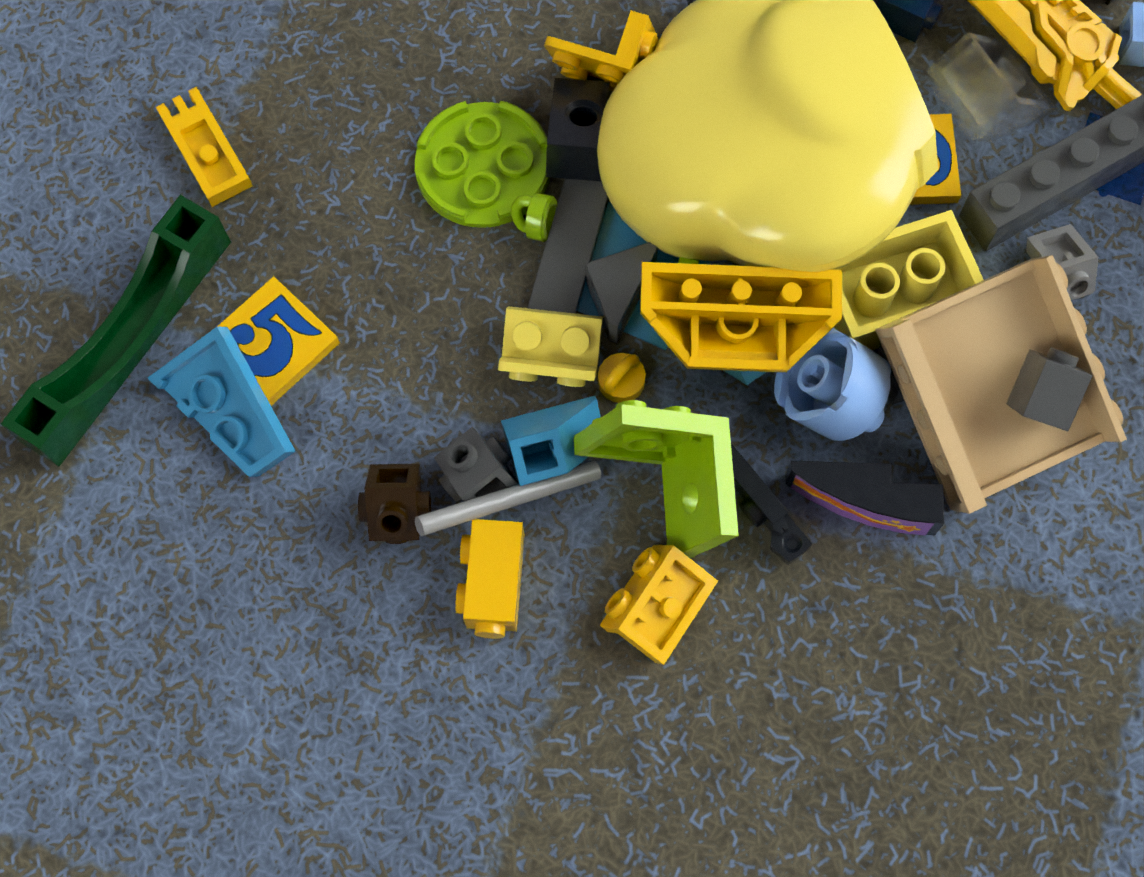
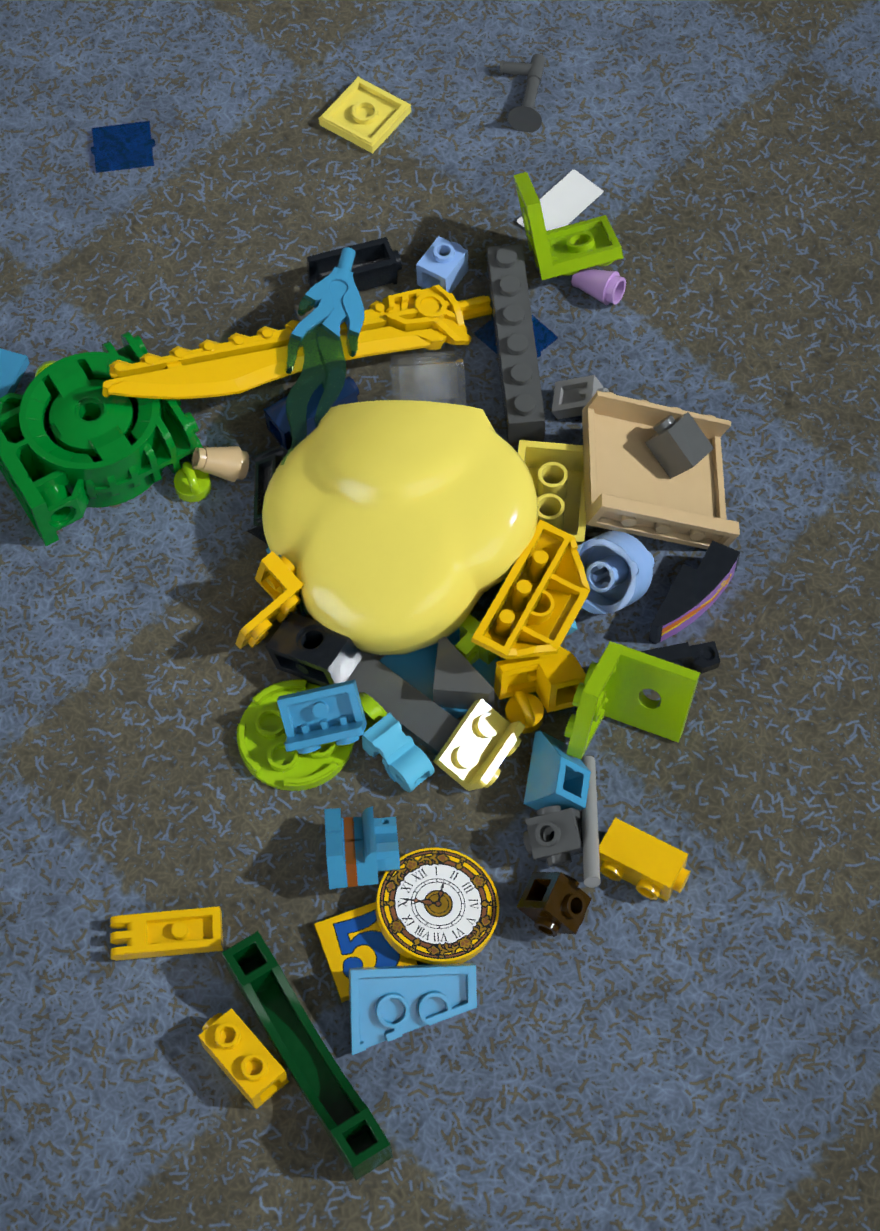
camera: 65 degrees left, 10 degrees down
(97, 274) = (242, 1057): none -> yellow brick
(343, 386) = (437, 907): none -> tile
(363, 270) = (359, 848): none -> dark azure hips
(495, 169) = (322, 717): none -> dark azure bracket
(500, 270) = (400, 755): none -> medium azure leg
(658, 601) = (708, 760): yellow bracket -> none
(669, 380) = (550, 676): none -> yellow brick

